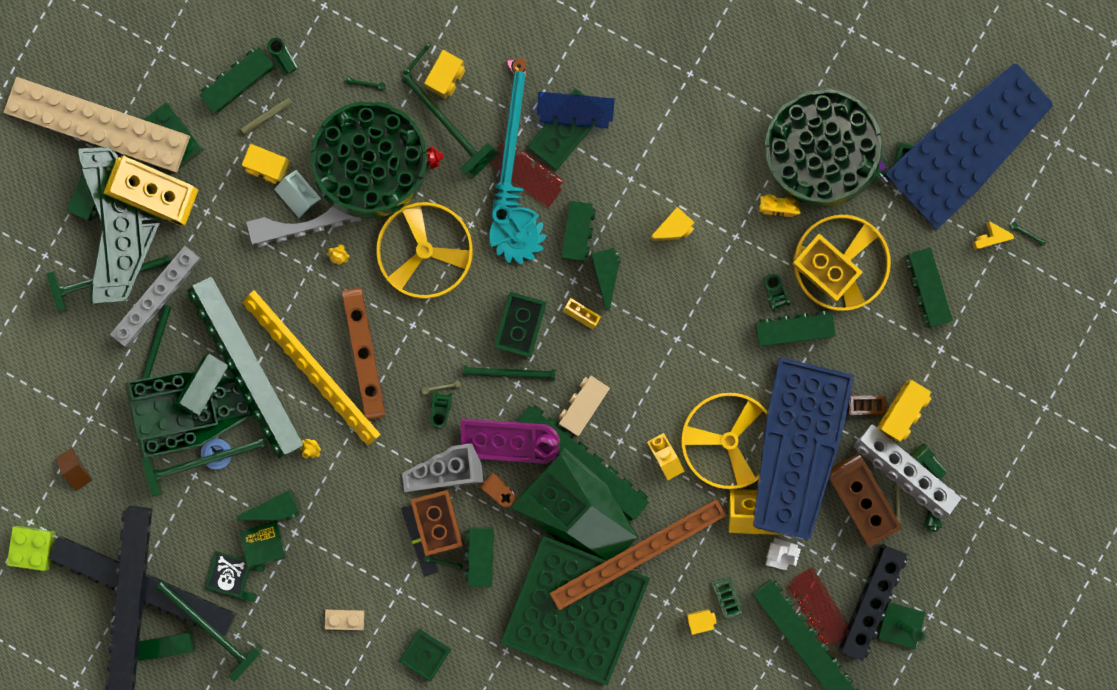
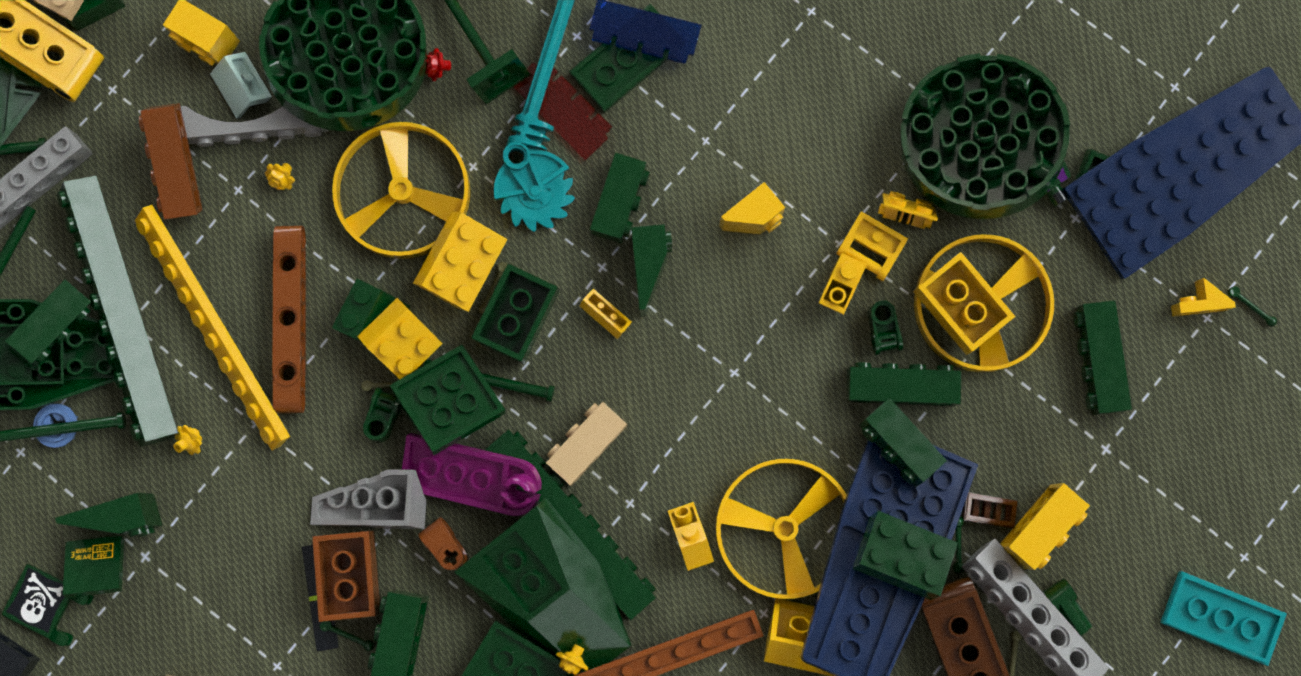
camera: 15 degrees right, 5 degrees down
(263, 258) = (170, 160): none -> dark orange brick
(420, 342) = (361, 308): none -> dark green slope
(444, 356) = (399, 339): none -> yellow brick
(475, 294) = (460, 261): none -> yellow brick
(485, 391) = (447, 399): none -> dark green plate
(504, 292) = (501, 267): none -> olive hinge
(600, 554) = (572, 661): none -> yellow plant
(741, 266) = (842, 283): none -> yellow slope
(760, 229) = (876, 238): none -> yellow plate
(799, 370) = (902, 443): none -> dark green brick
(812, 446) = (905, 555): none -> dark green brick
(850, 446) = (958, 565): none -> dark green hinge
(1036, 451) = (1223, 618): none -> teal tile

